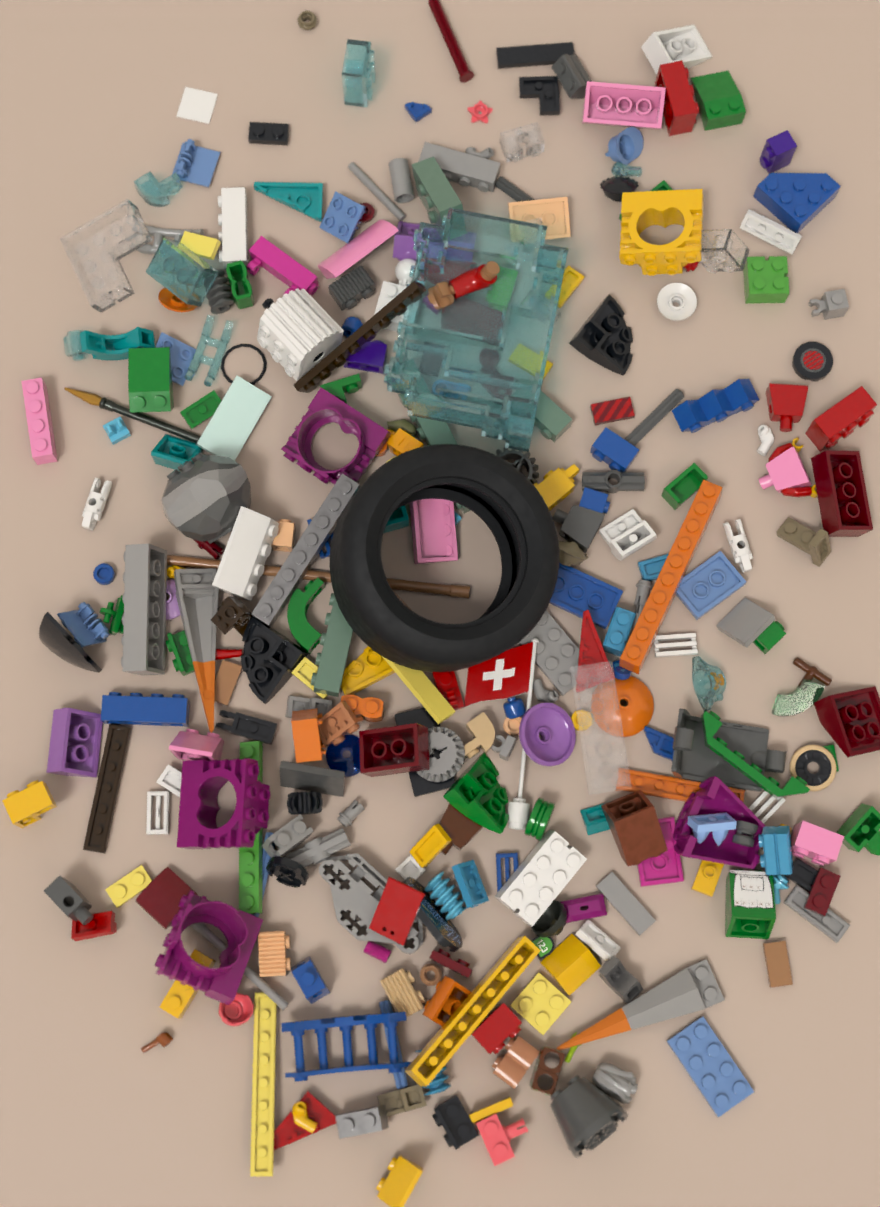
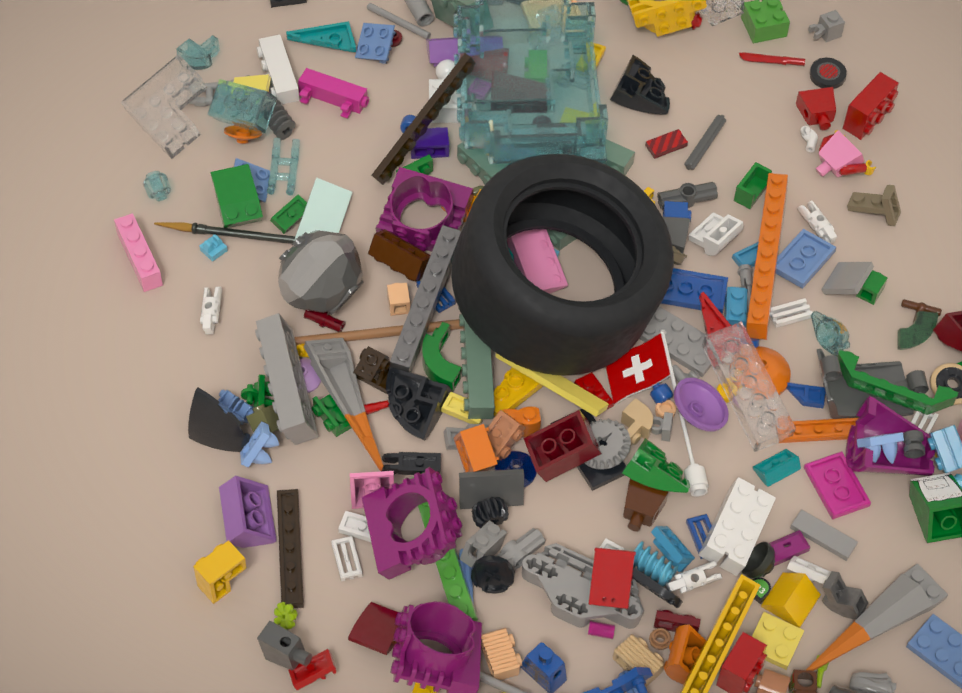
camera: 15 degrees left, 20 degrees down
(83, 862) = (286, 615): none -> lime plant
(98, 675) = (253, 449): none -> light blue tile
(104, 574) = (234, 367): blue tile -> none
(110, 648) = (265, 415): none -> olive brick
(115, 346) = (194, 180): teal arch -> none
(129, 886) = (336, 629): light yellow plate -> none
(145, 710) = (309, 470): blue brick -> none
(174, 451) = (268, 255): teal slope -> none
(196, 164) = (228, 29): medium blue hinge -> none
(226, 682) = (380, 427): medium nougat tile -> none
(240, 284) = (298, 109): green brick -> none
(244, 345) = (314, 159): black piece -> none
(246, 554) = (371, 310): white slope -> none
(296, 487) = (399, 255): none -> reddish brown brick
(297, 332) = (364, 129): white piece -> none
(350, 813) = (536, 515): light grey pin -> none
(352, 288) = (400, 94): dark grey brick -> none
(357, 248) = (395, 62): bright pink slope -> none
(430, 845) = (623, 522): yellow tile -> none
(470, 281) = (508, 57): piece -> none
(471, 923) = (684, 582): none -> white hinge
(539, 819) = (718, 476): green head -> none
(614, 451) = (679, 170): blue brick -> none
(635, 827) = (811, 462): copper slope -> none
(676, 293) = (694, 50): white dish -> none
(707, 877) = (891, 492): yellow plate -> none
(715, 406) = (757, 119): blue brick -> none
(757, 329) = (772, 59): none -> red piece
(842, 493) = (894, 160): dark red brick -> none

